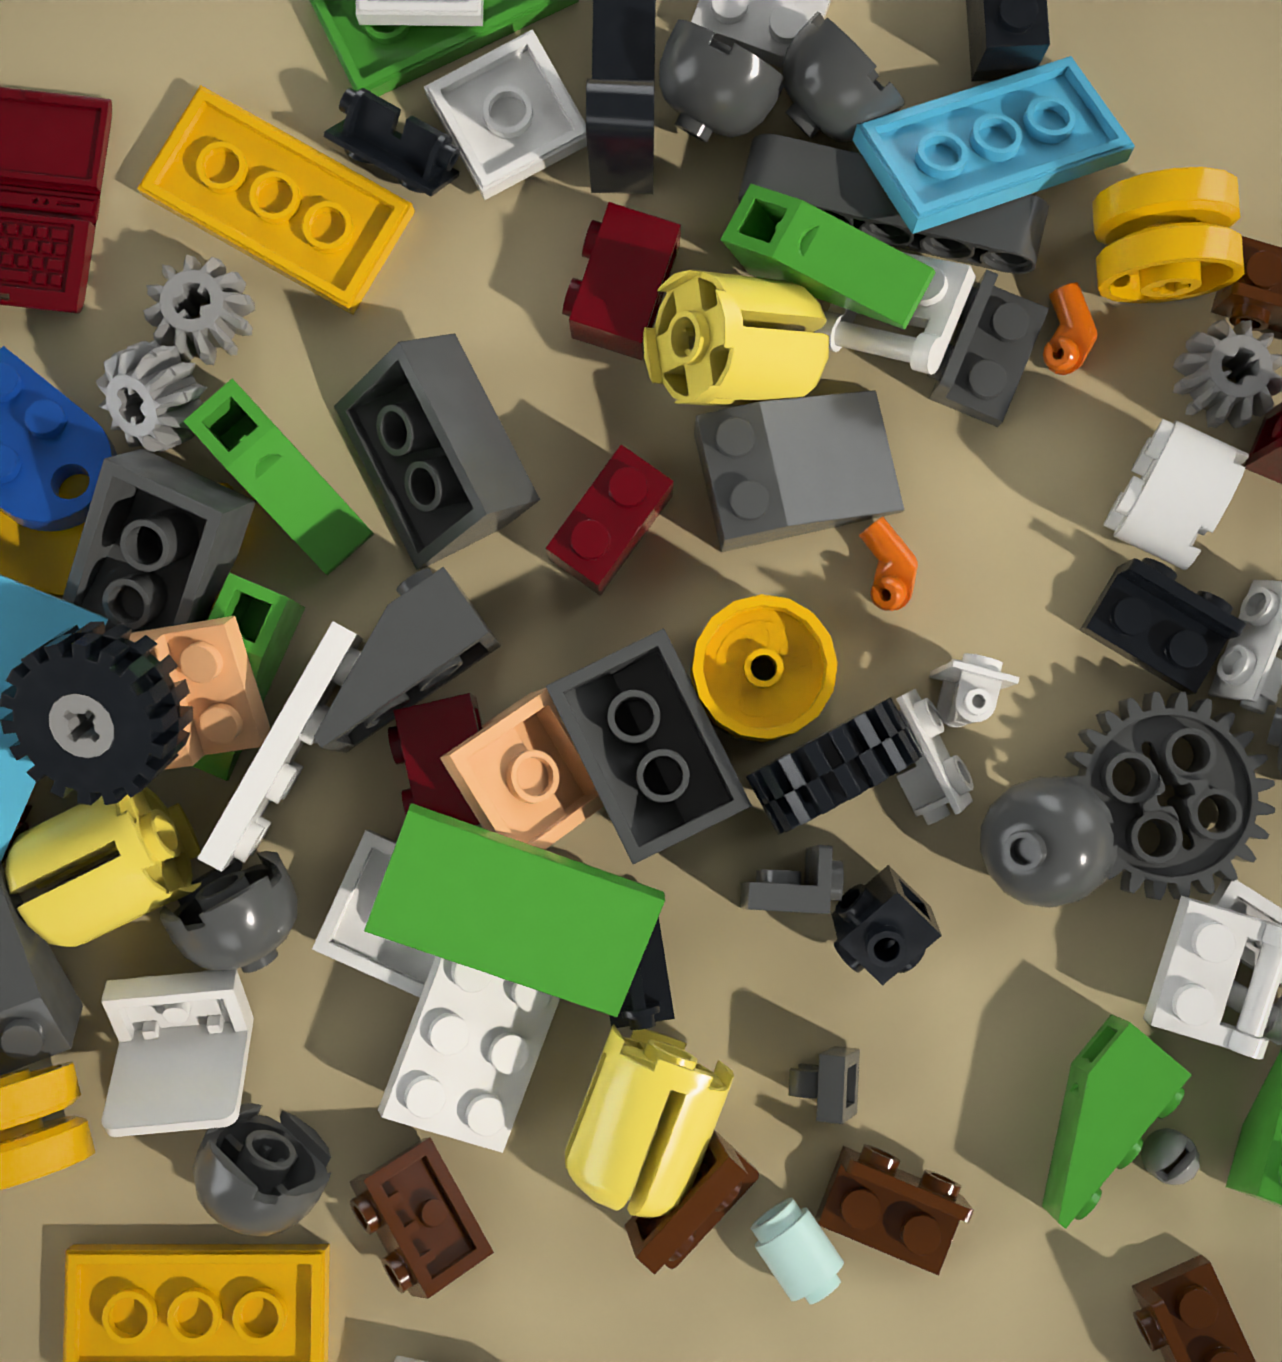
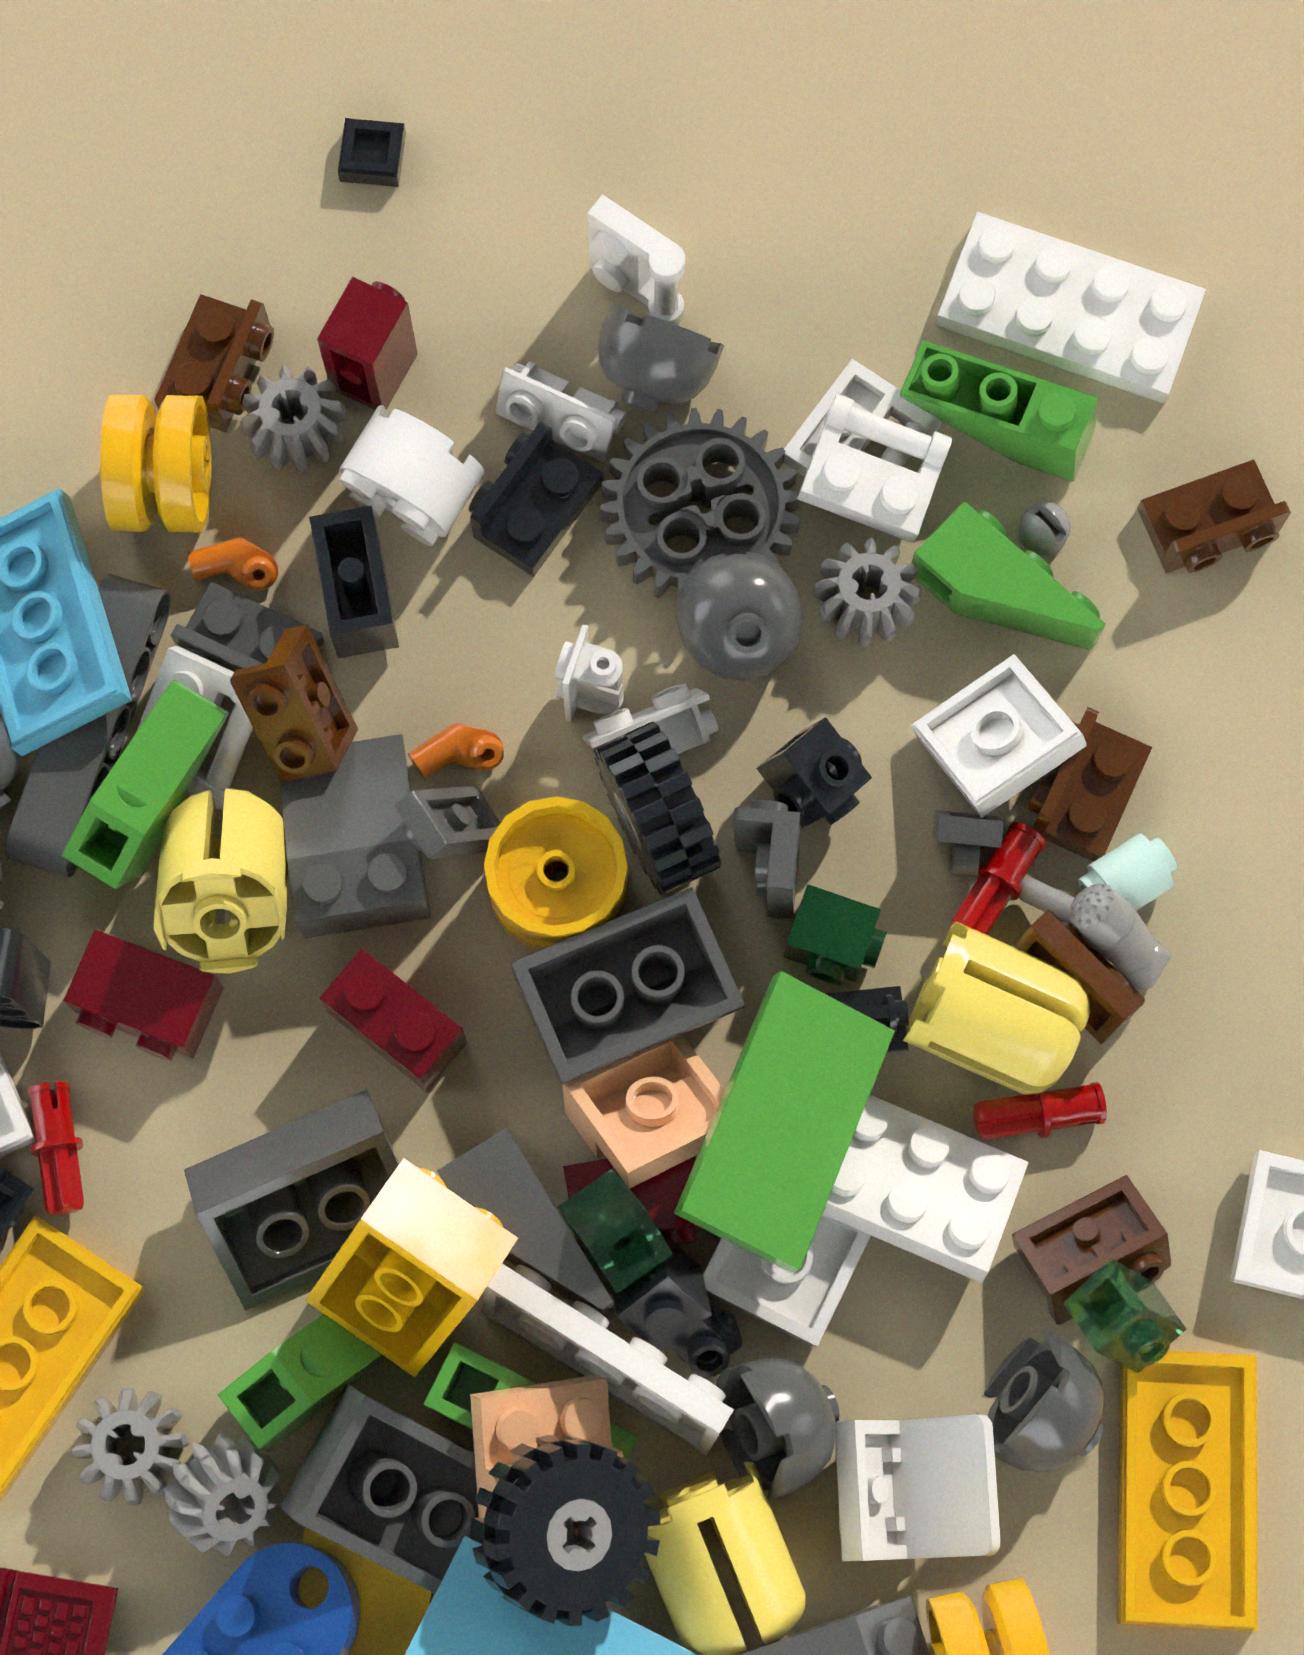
camera: 90 degrees left, 10 degrees down
(341, 799) = (673, 1311): none -> black brick
(342, 1257) = (1125, 1316): none -> clear green brick
(350, 553) = (412, 1267): none -> yellow brick
(394, 745) = (615, 1230): none -> clear green brick
(473, 216) = (56, 1148): none -> red axle
(547, 1144) = (1040, 1112): none -> red axle
(718, 952) = (834, 936): none -> dark green brick
(744, 1229) = (1107, 926): none -> light grey piece
(785, 1117) = (1000, 878): none -> red axle
(809, 558) = (448, 821): none -> dark grey plate
(918, 399) = (296, 708): none -> reddish brown bracket
(938, 1116) = (998, 735): none -> white plate
(1057, 446) = (354, 581): none -> black brick
(1067, 990) = (862, 570): none -> light grey gear

